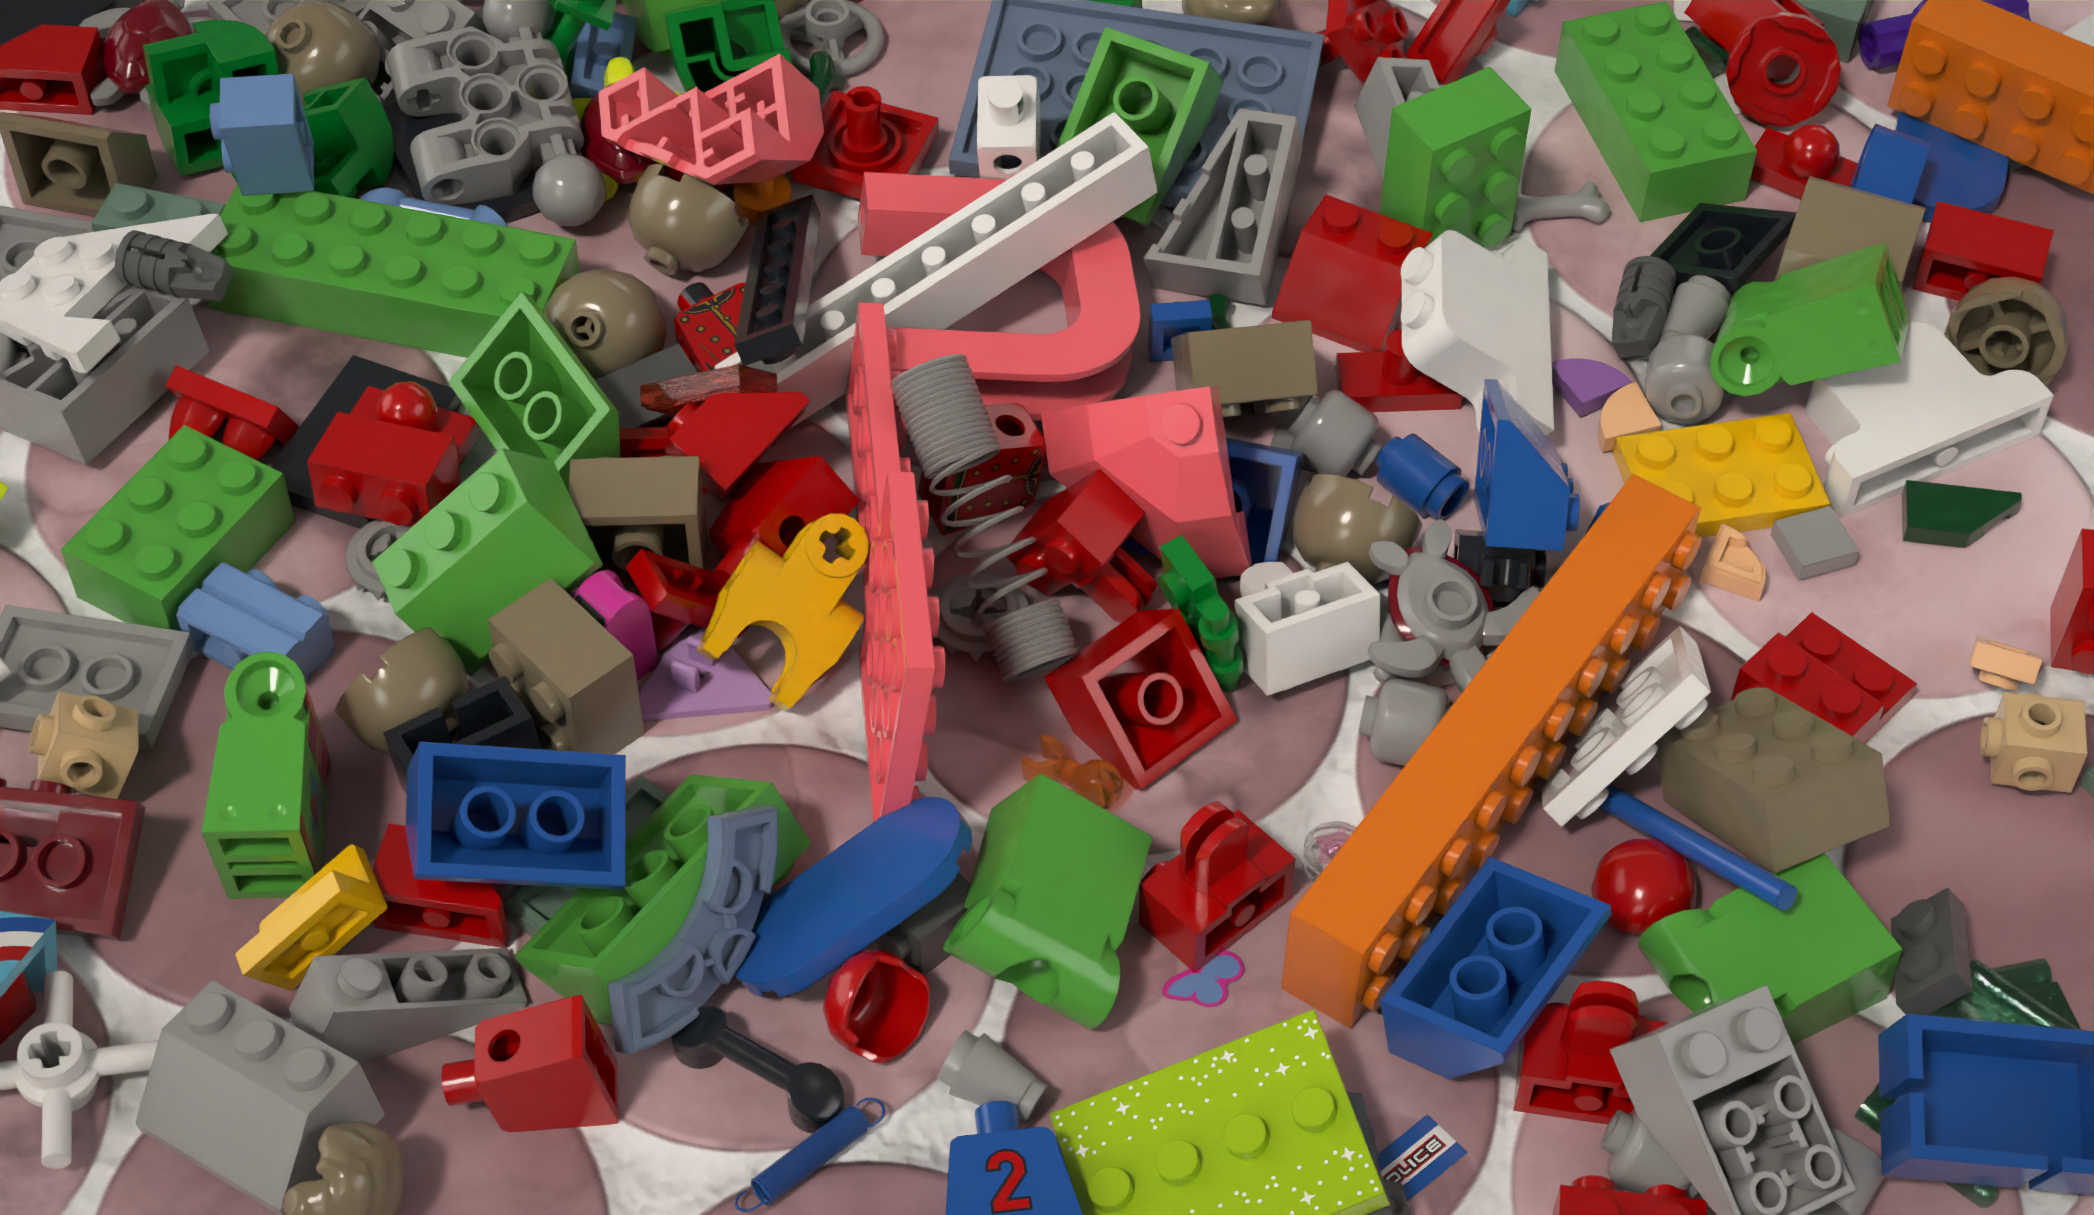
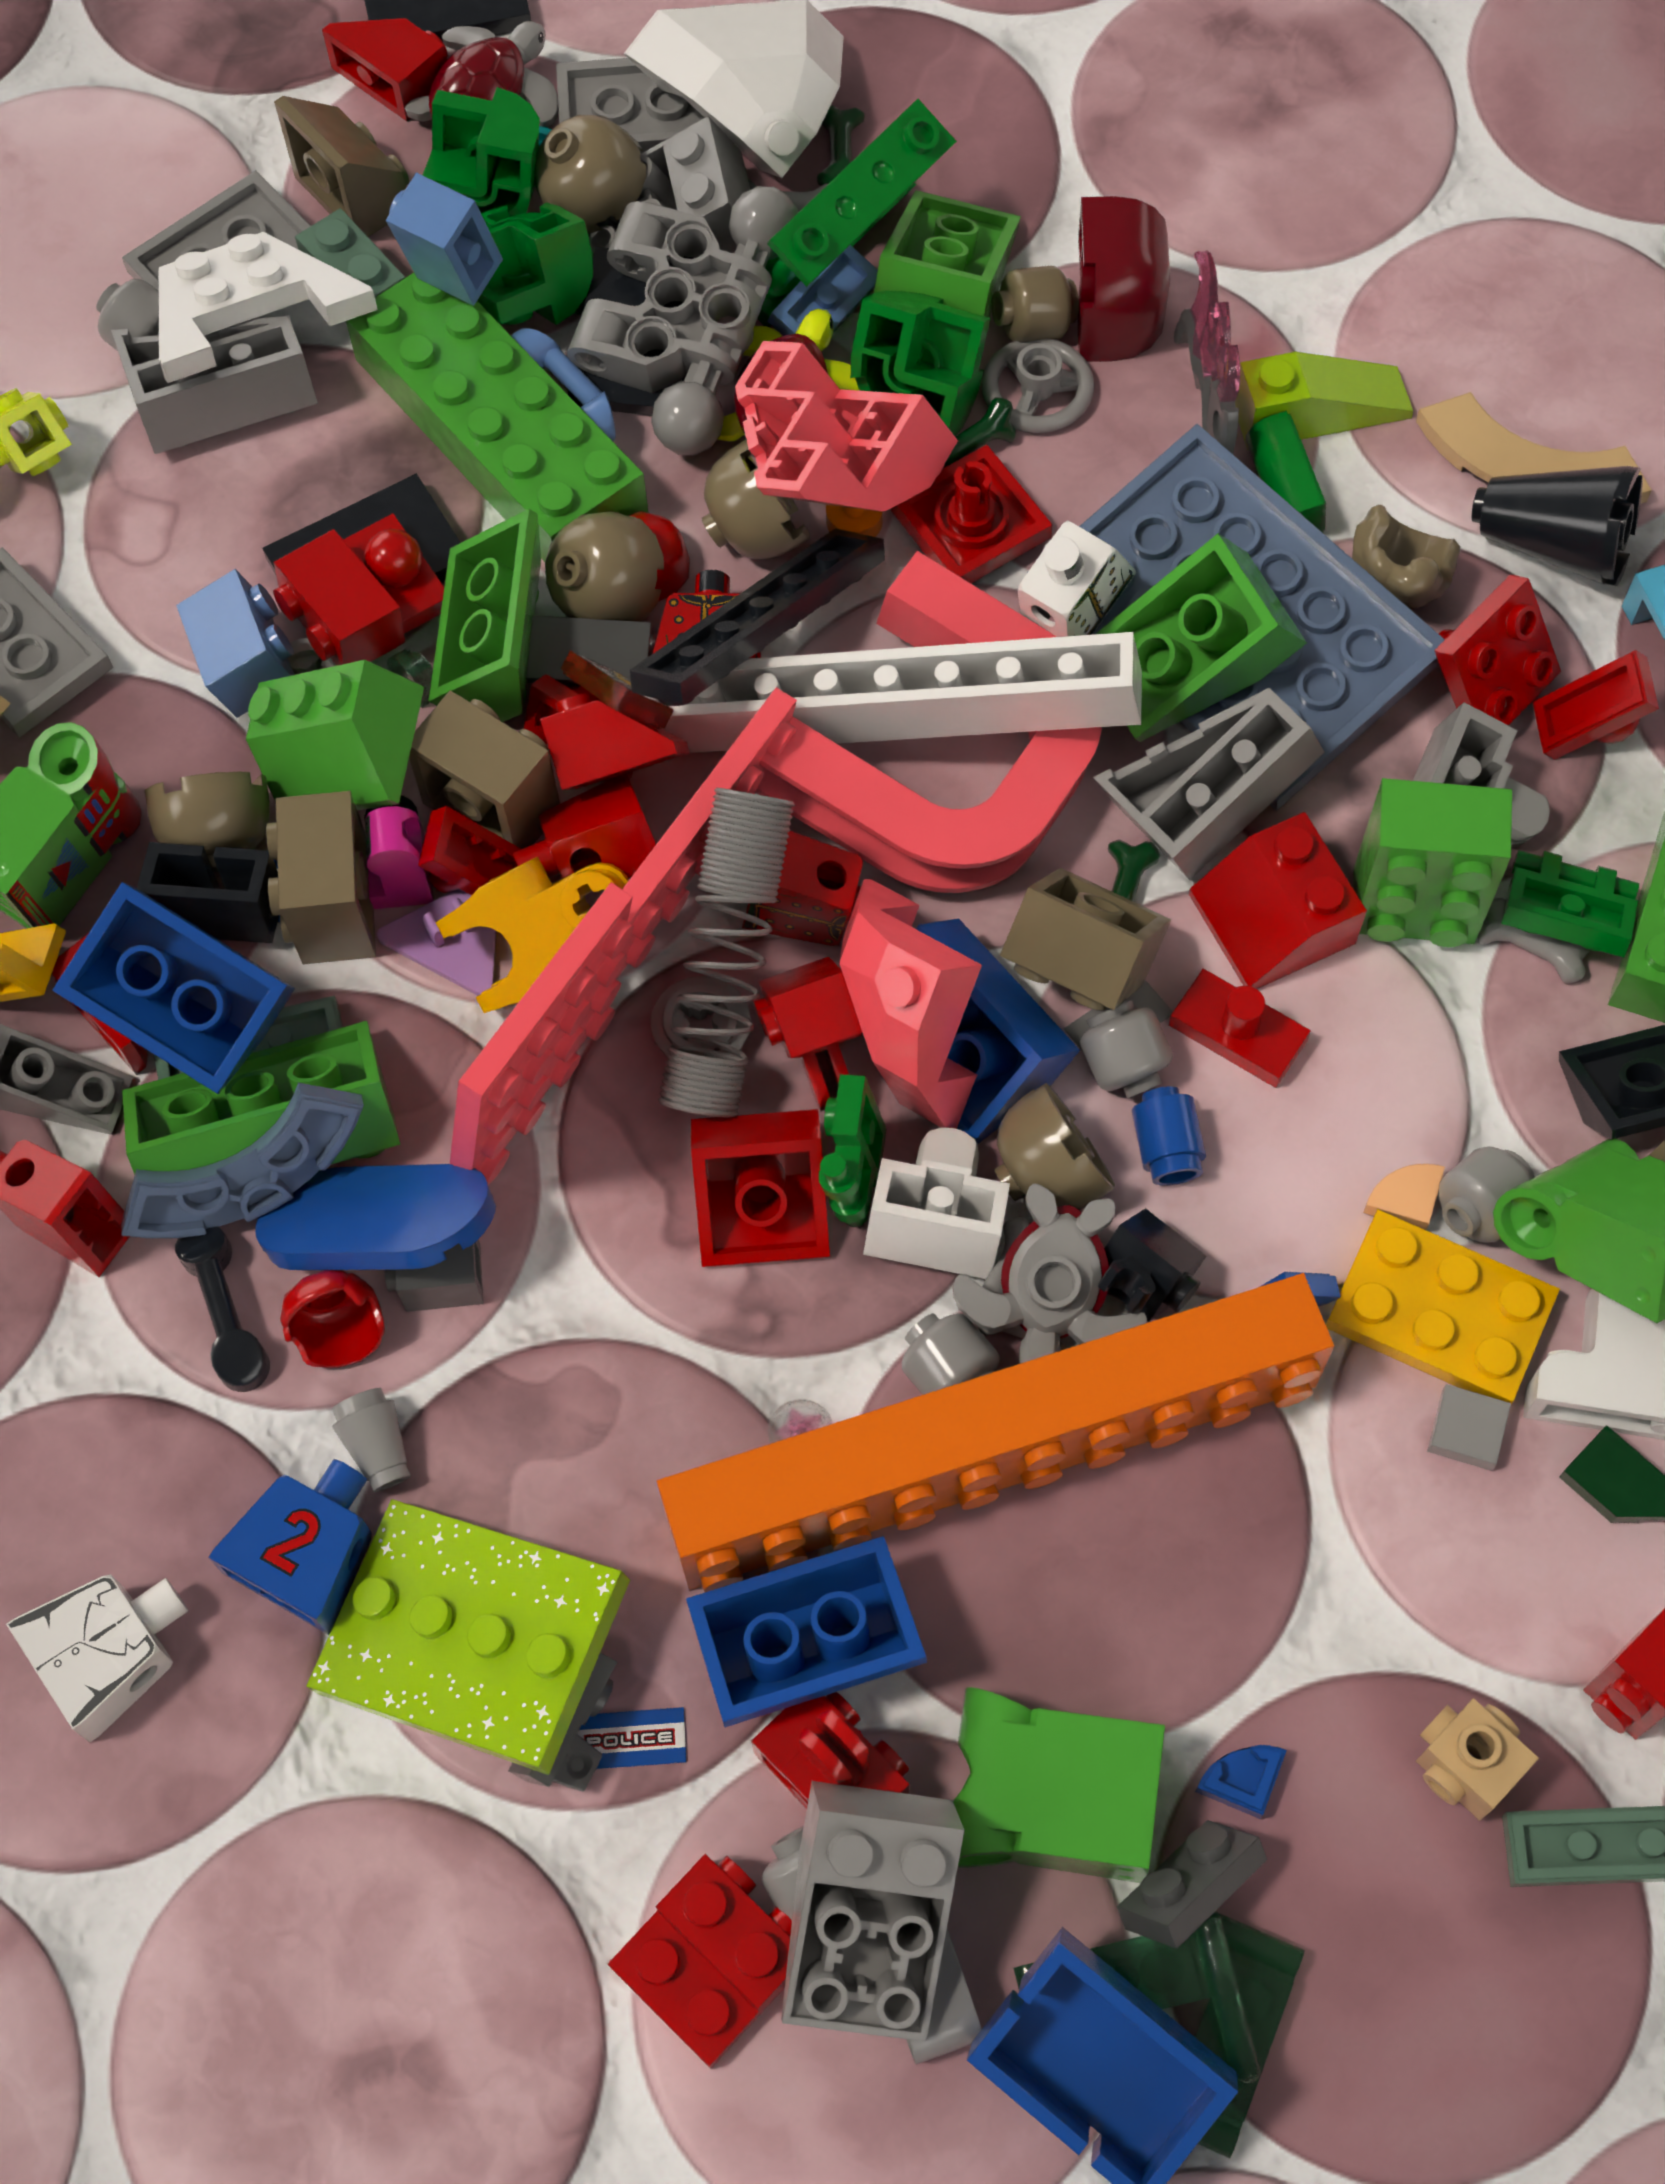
camera: 40 degrees right, 15 degrees up
(171, 267) = (301, 319): dark grey hinge -> none
(174, 526) = (153, 555): bright green brick -> none
(206, 404) = (278, 456): red tile -> none
(248, 615) = (157, 682): medium blue brick -> none
(312, 551) = (235, 639): none -> medium blue brick
(810, 1154) = (201, 1404): blue piece -> none
(1052, 899) = (515, 1328): bright green piece -> none
(1093, 780) = (661, 1232): clear orange arm -> none
(1172, 320) = (1083, 856): blue plate -> none
(1208, 984) = (612, 1469): medium blue sticker -> none
(1216, 887) = (670, 1397): red brick -> none
(1480, 319) = (1332, 1033): white brick -> none
(1519, 481) = (1219, 1203): blue slope -> none
(1572, 160) = (1571, 903): none -> green plate
(1586, 383) = (1404, 1137): medium lavender tile -> none
(1642, 305) = (1516, 1096): dark grey hinge -> none
(1643, 884) = (1022, 1645): red hair -> none
(1656, 695) = (1127, 1495): white plate -> none
(1696, 308) = (1556, 1134): light grey cone -> none
(1700, 849) = (1072, 1645): blue bar -> none
(1734, 565) = (1377, 1398): light nougat tile -> none
(1773, 779) = (1186, 1635): dark tan brick -> none
(1829, 677) = (1342, 1571): red plate -> none
(1889, 875) = (1244, 1778): none -> blue tile
(2004, 664) = (1528, 1660): light nougat plate -> none

